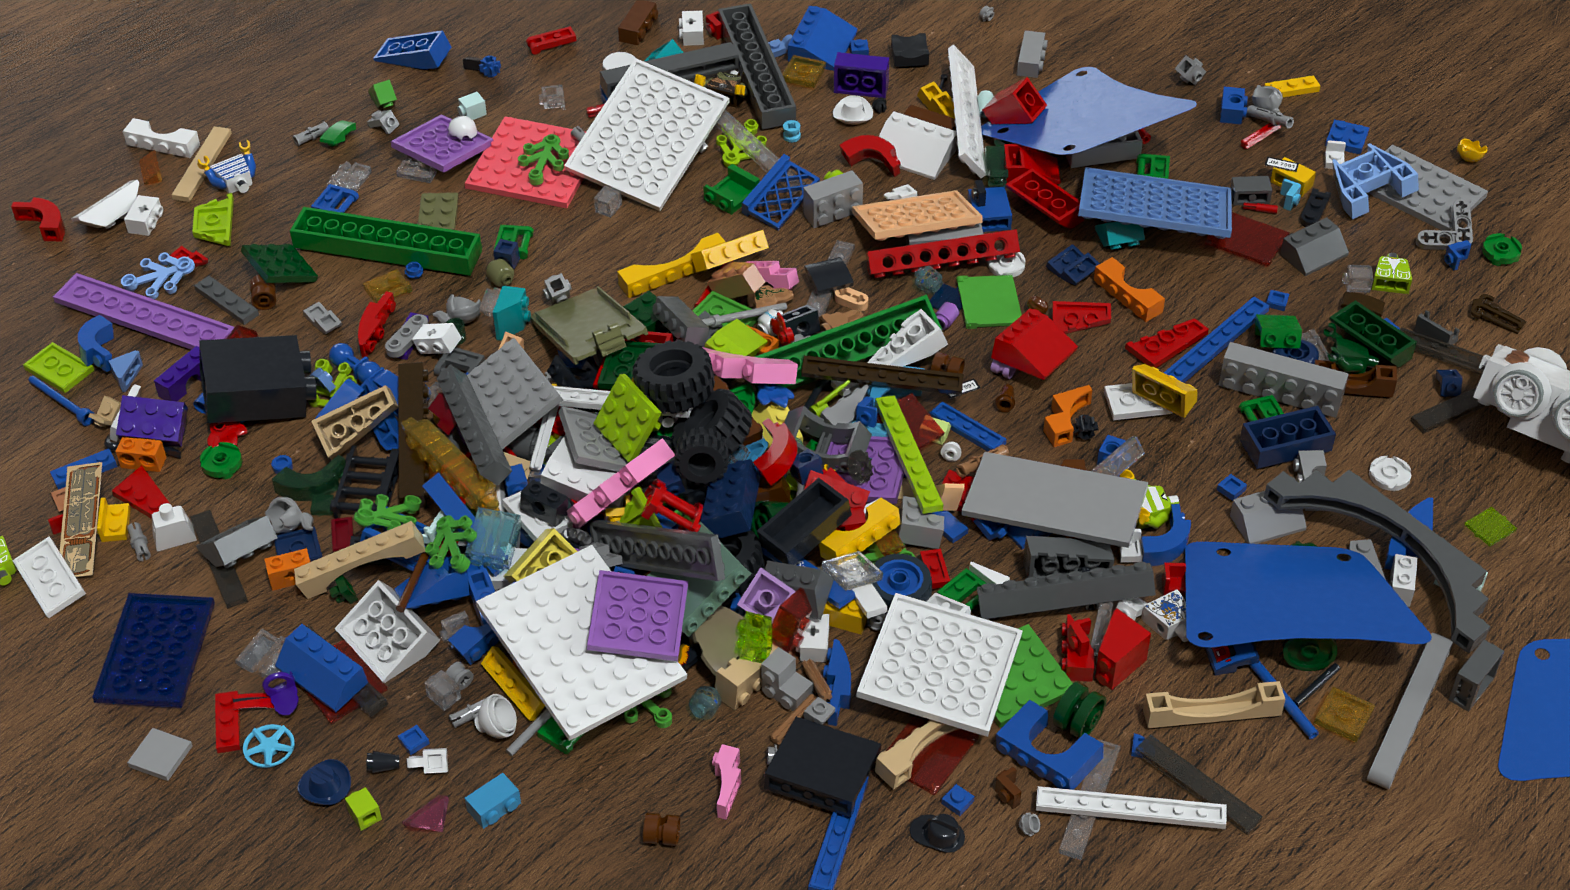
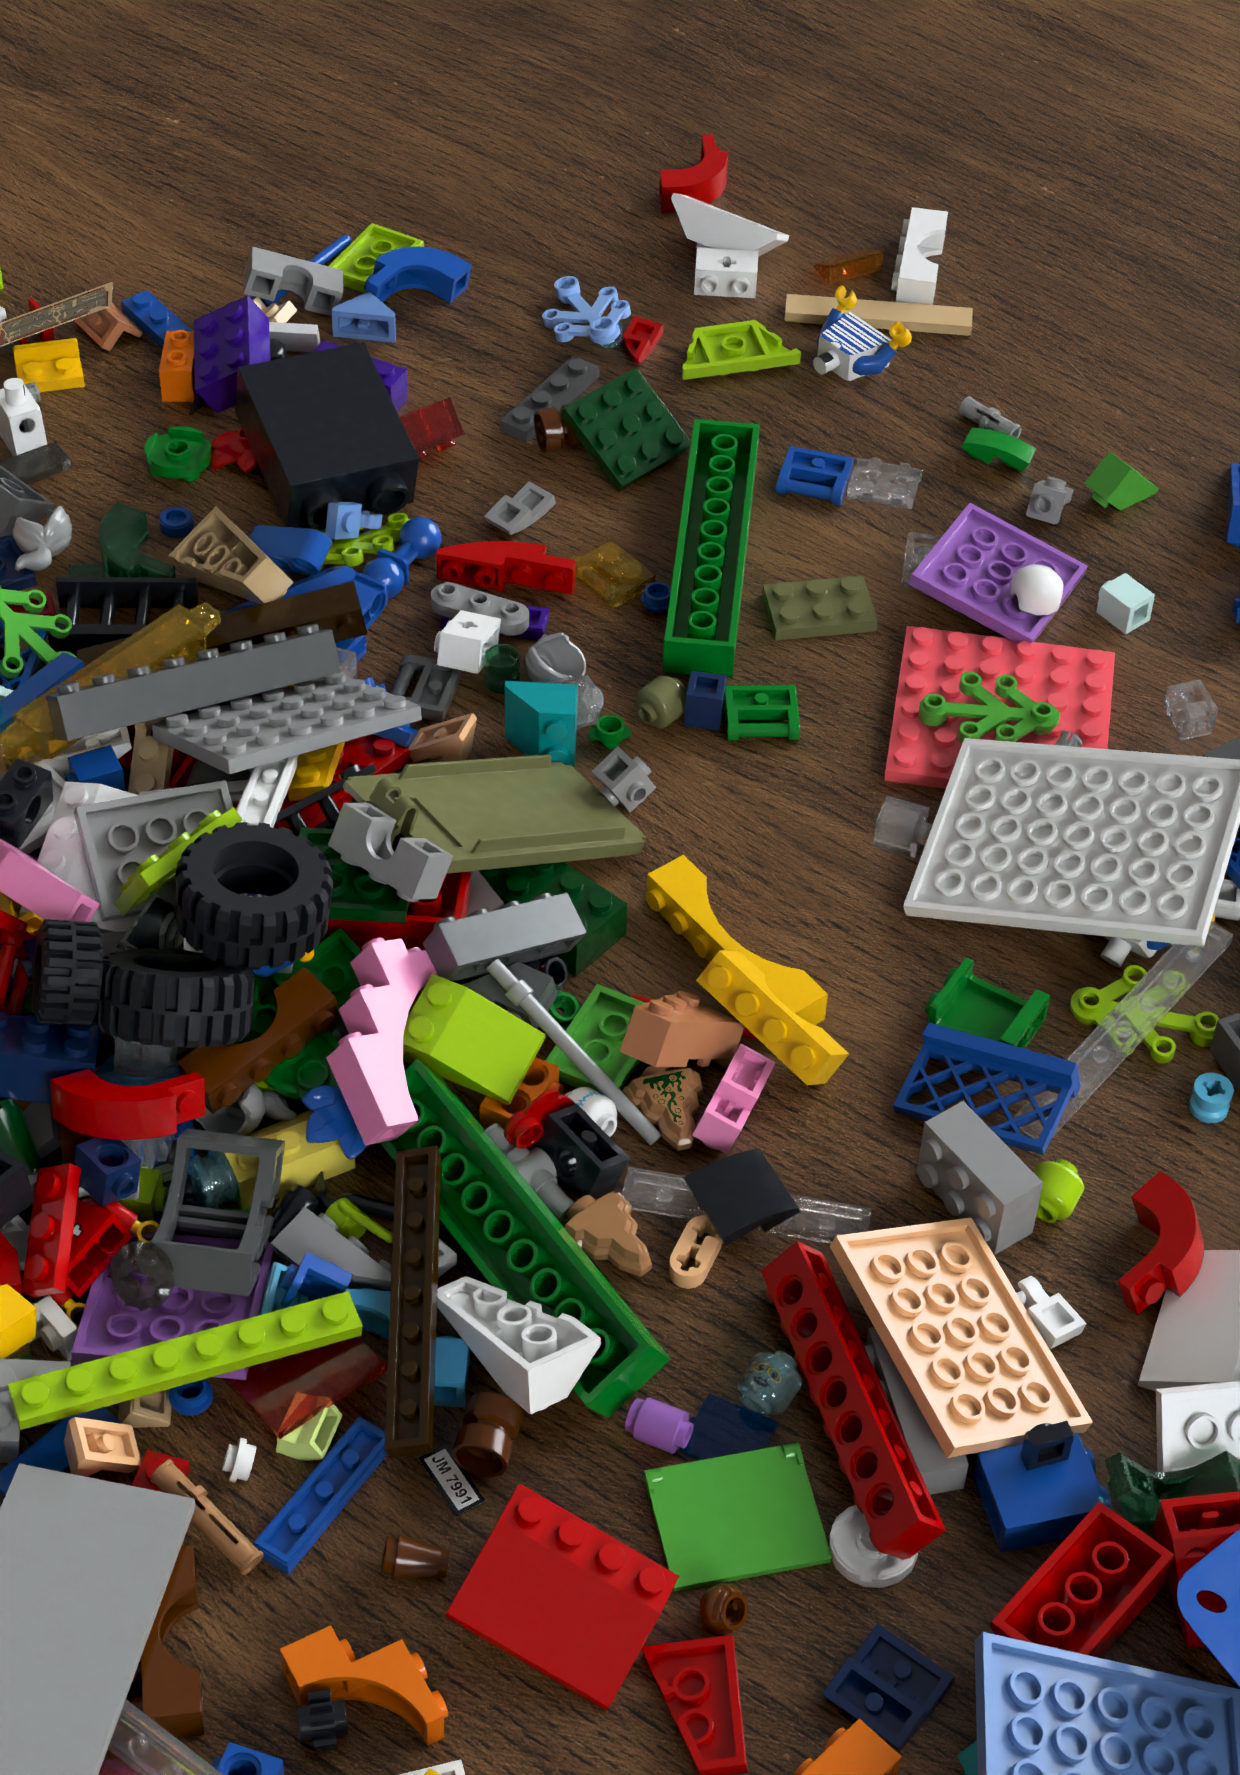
camera: 80 degrees right, 0 degrees up
(78, 397) = (315, 283): none -> light grey arch
(139, 312) = (495, 318): medium lavender plate -> none
(140, 493) = (103, 389): red wing -> none
(653, 330) = (364, 840): none -> light grey arch

